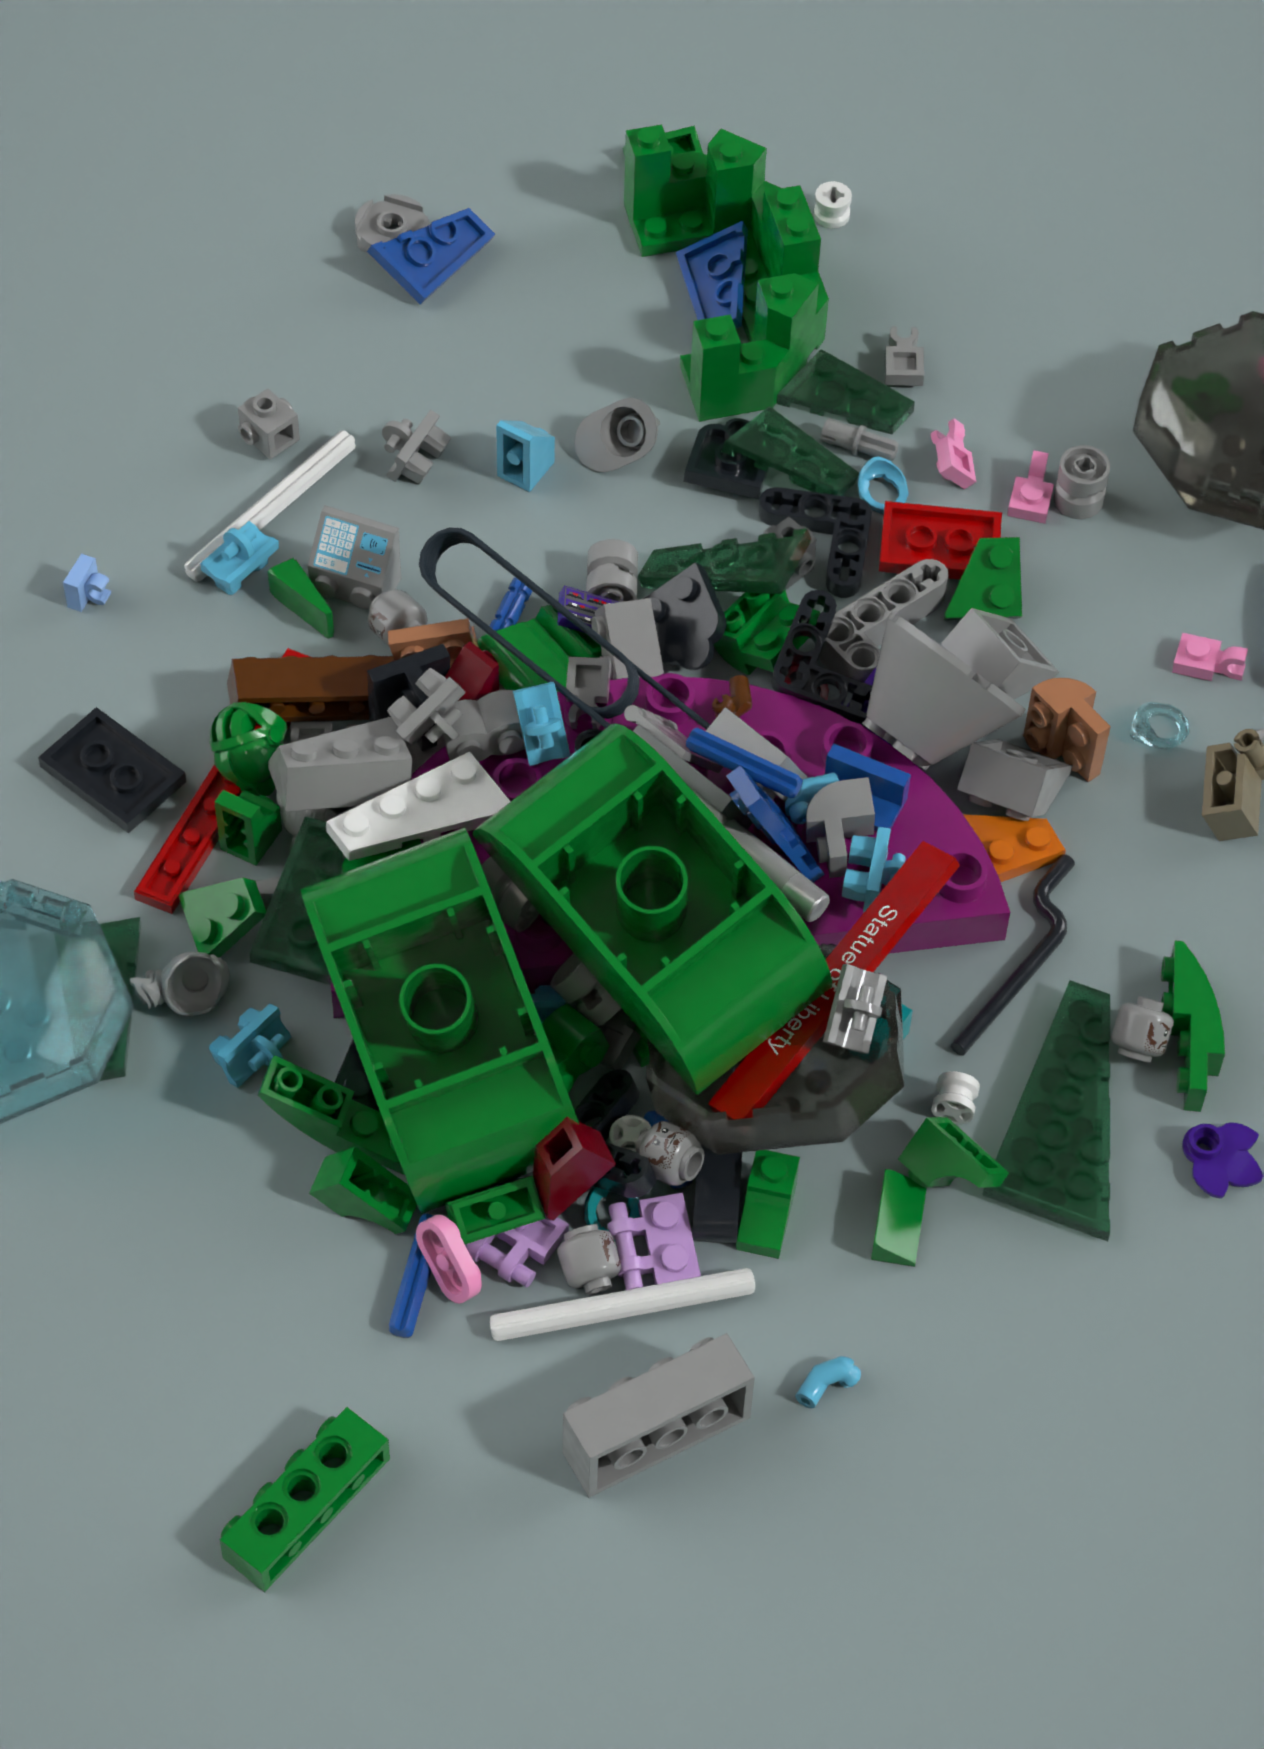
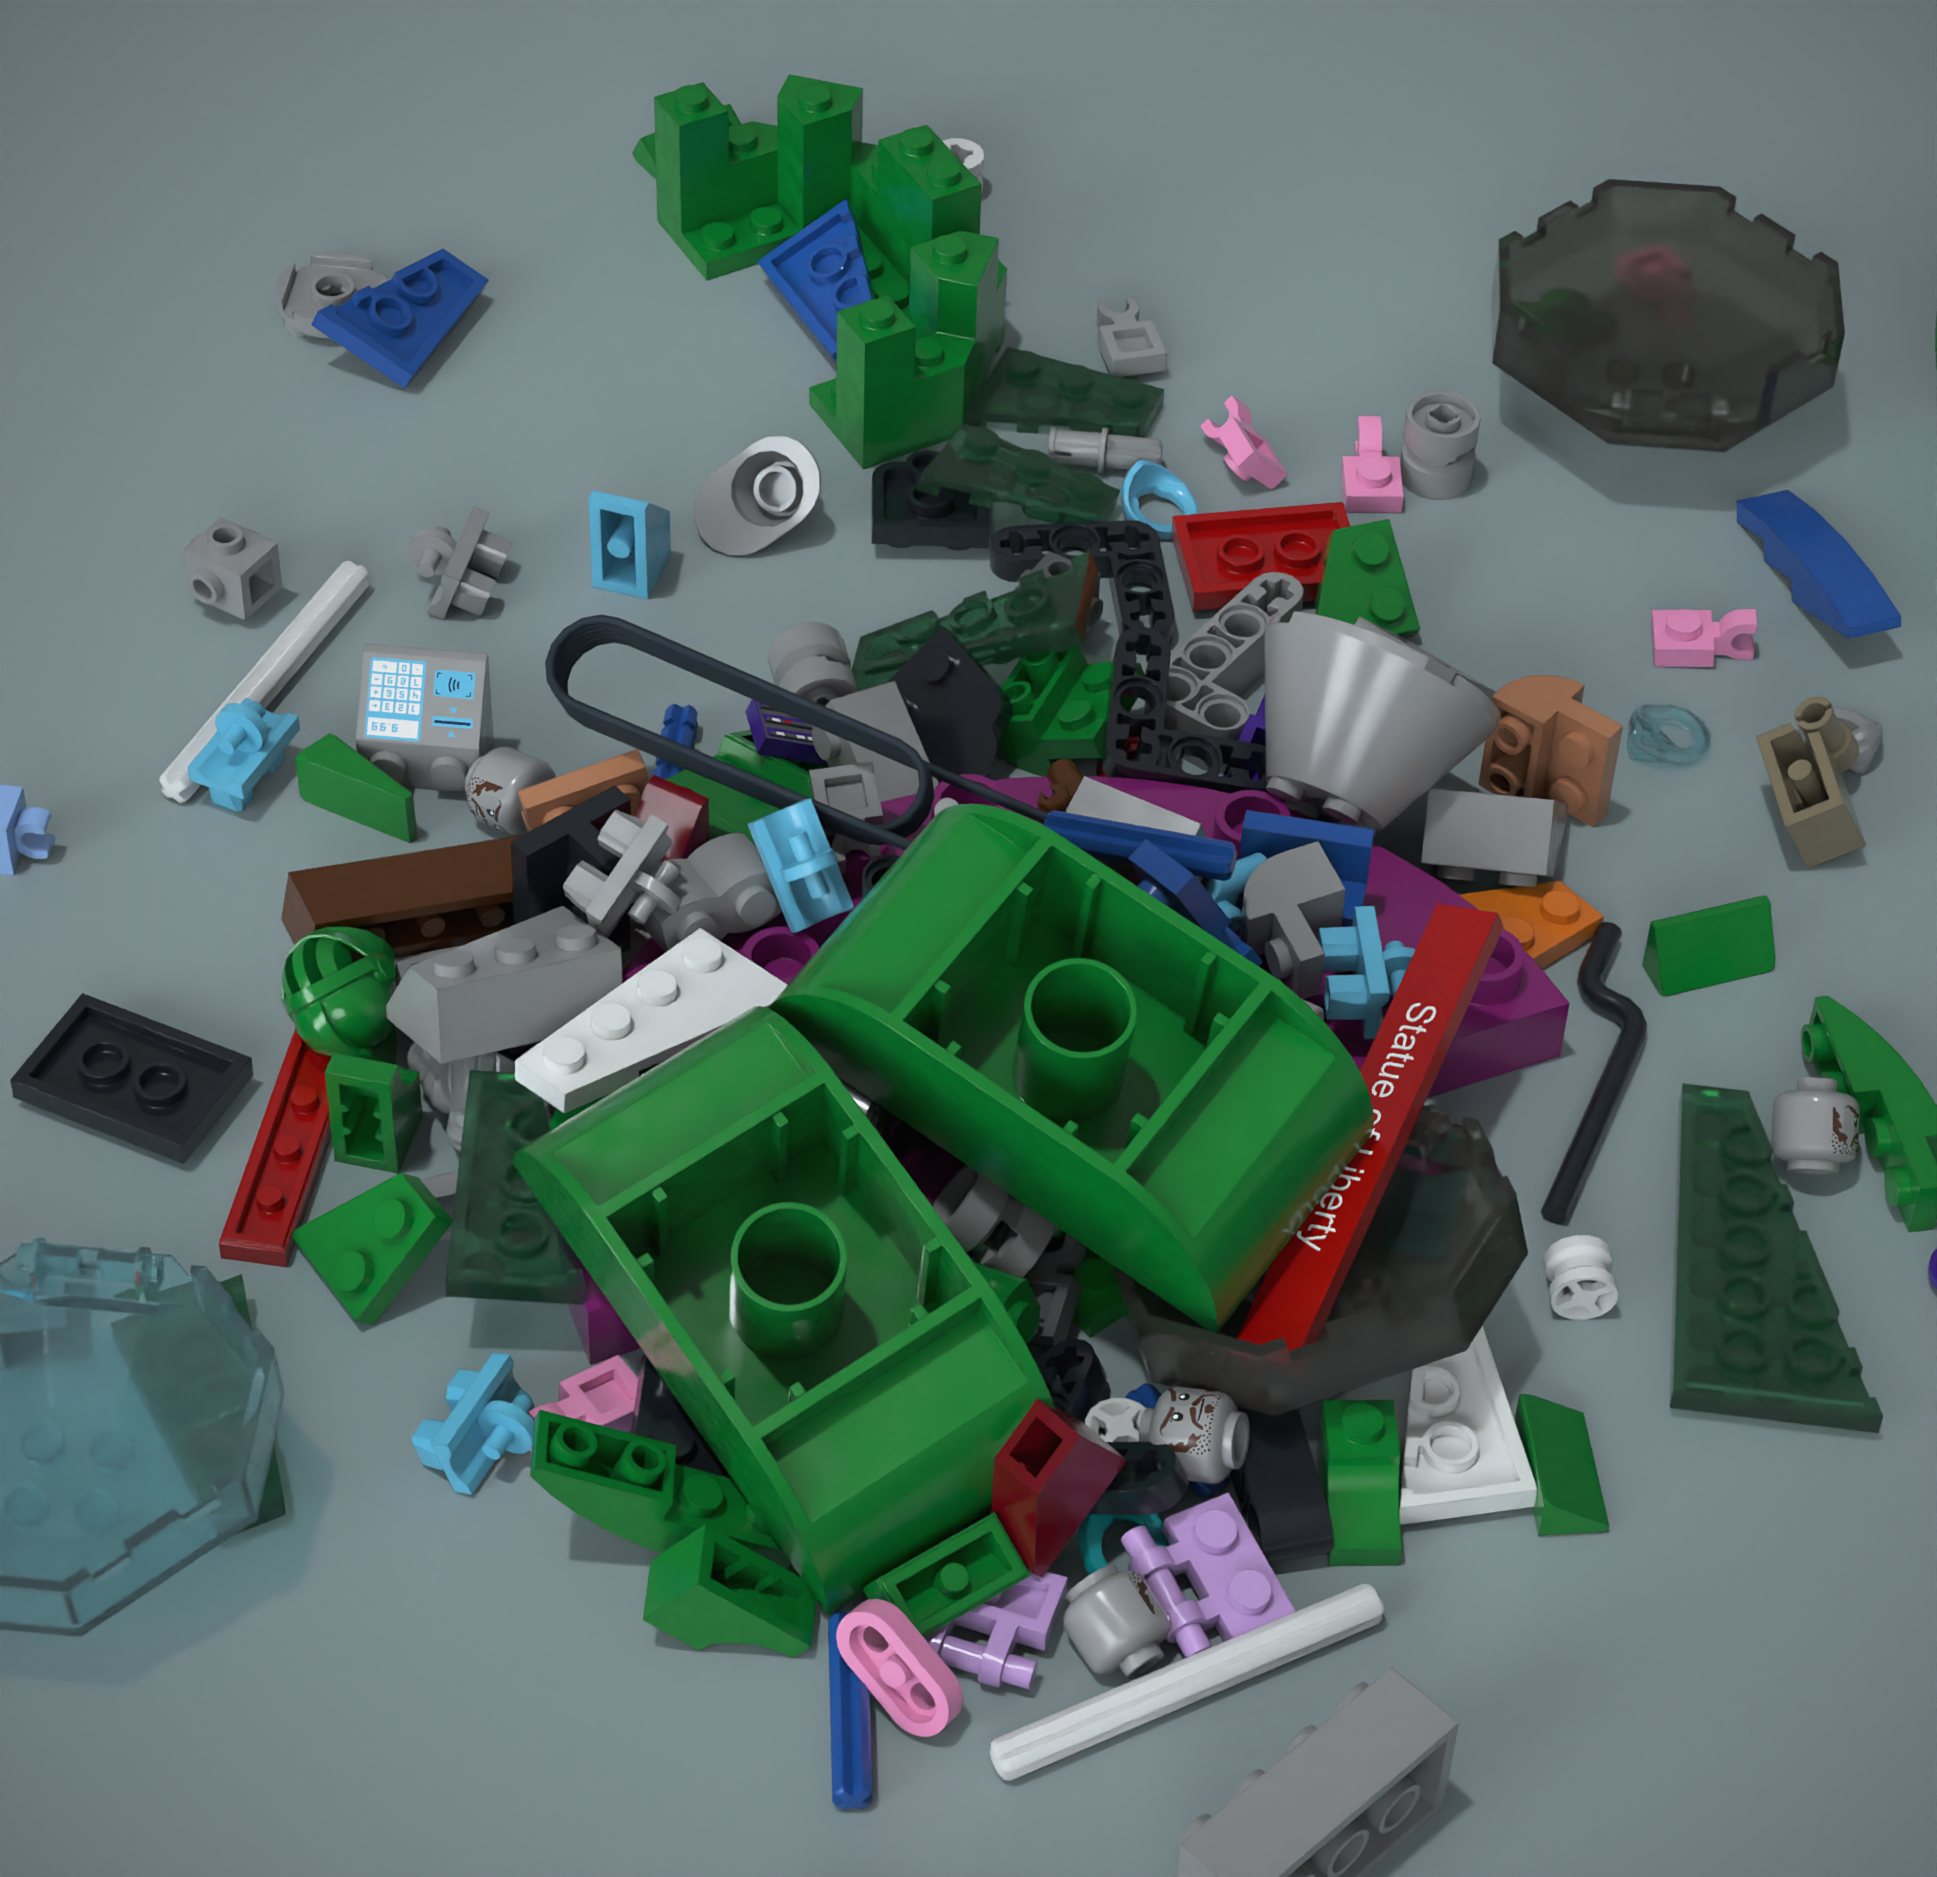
camera: 15 degrees left, 10 degrees down
(187, 984) = (349, 1354): light grey hair -> none
(323, 1047) = (597, 1396): none -> bright pink plate
(824, 1374) = (1534, 1715): medium azure arm -> none
(841, 1189) = (1462, 1441): none -> white wing
(855, 1009) = (1424, 1152): light grey hips -> none
(944, 1152) = (1599, 1356): green arch -> none
(1127, 886) = (1710, 946): none -> green slope

